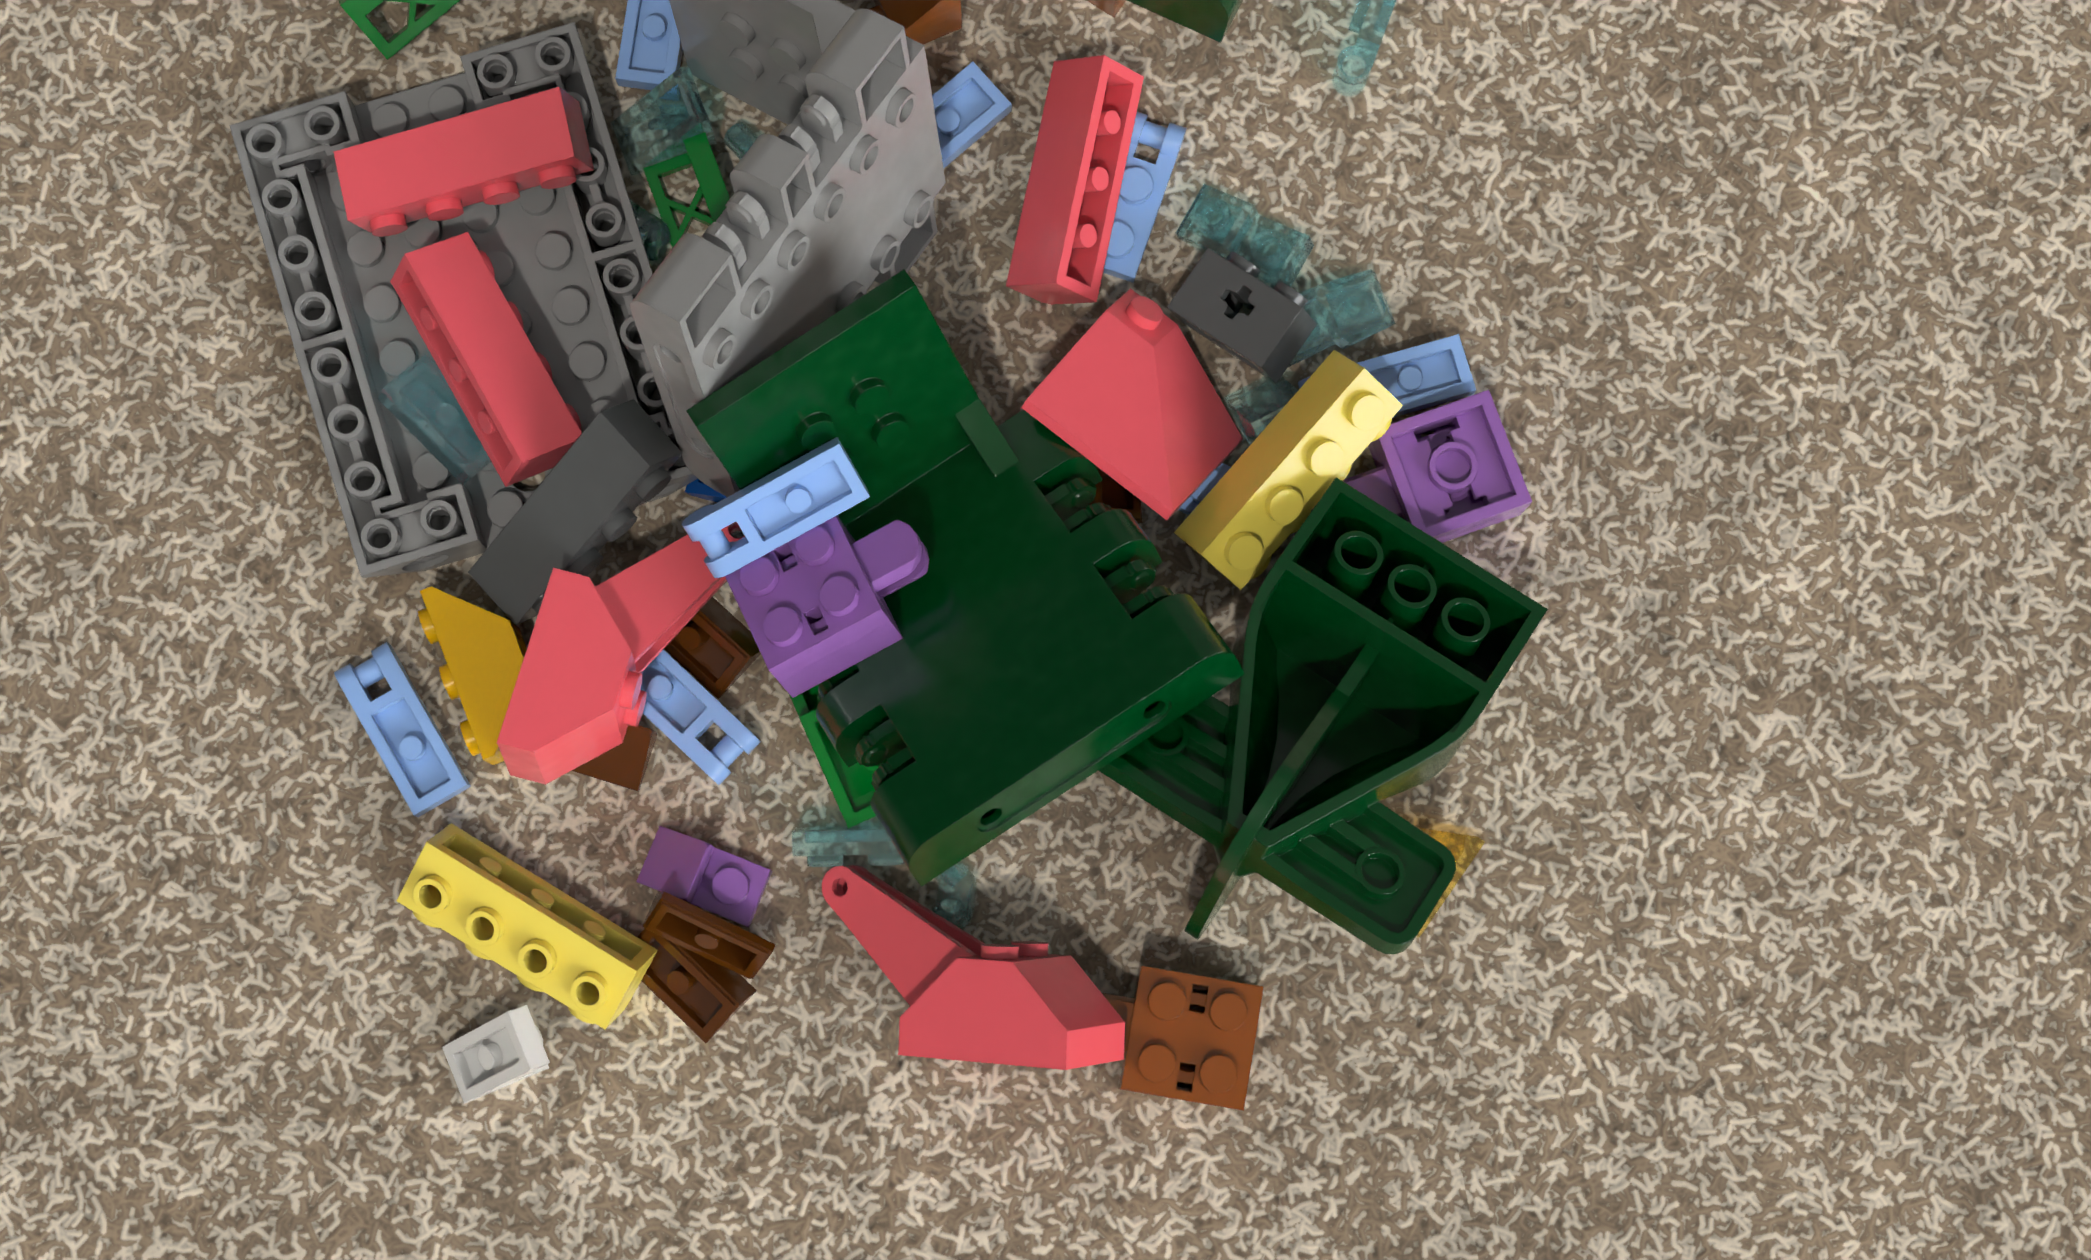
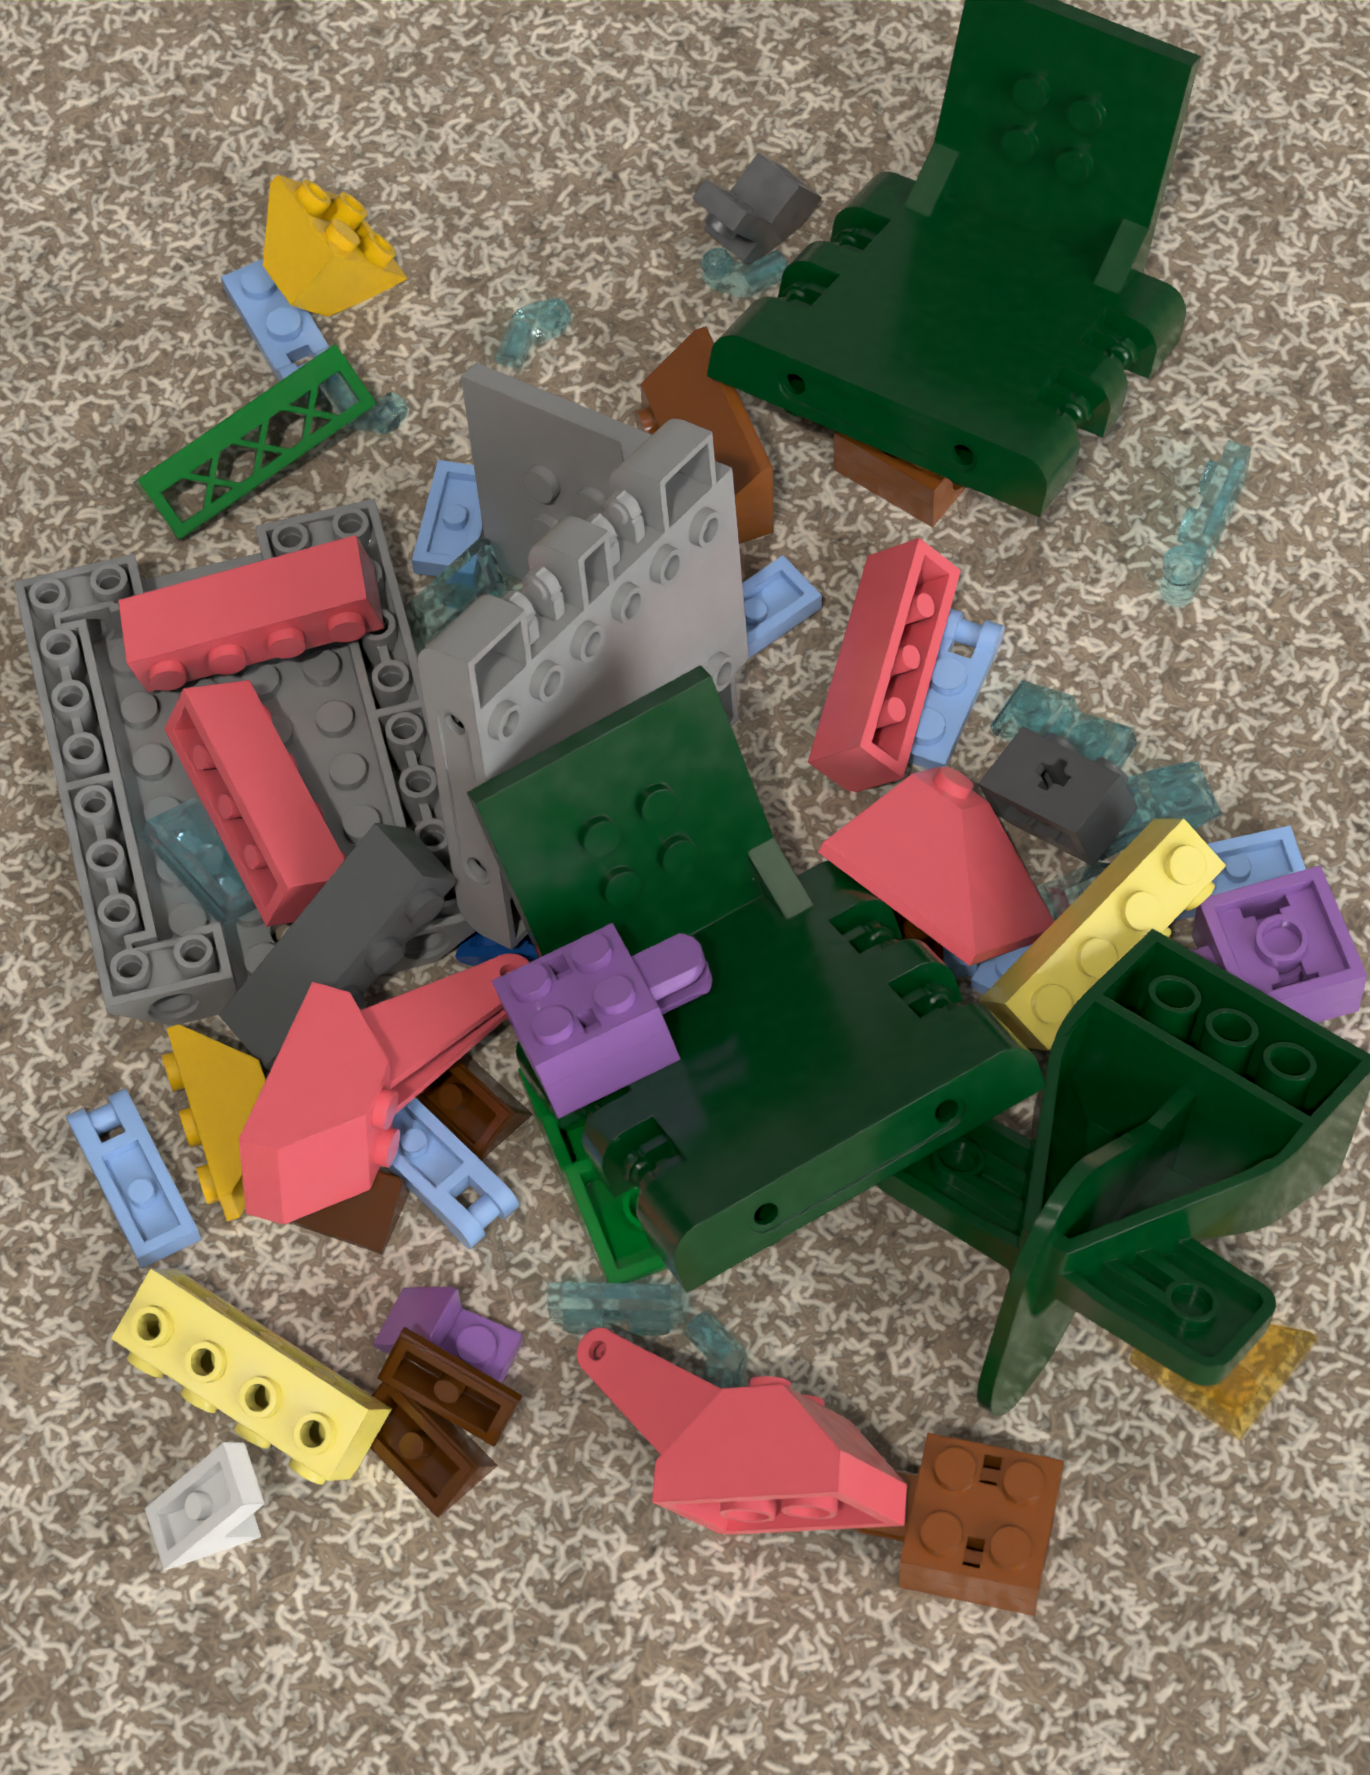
camera: 10 degrees right, 20 degrees down
(777, 508) = (555, 911): light blue plate -> none

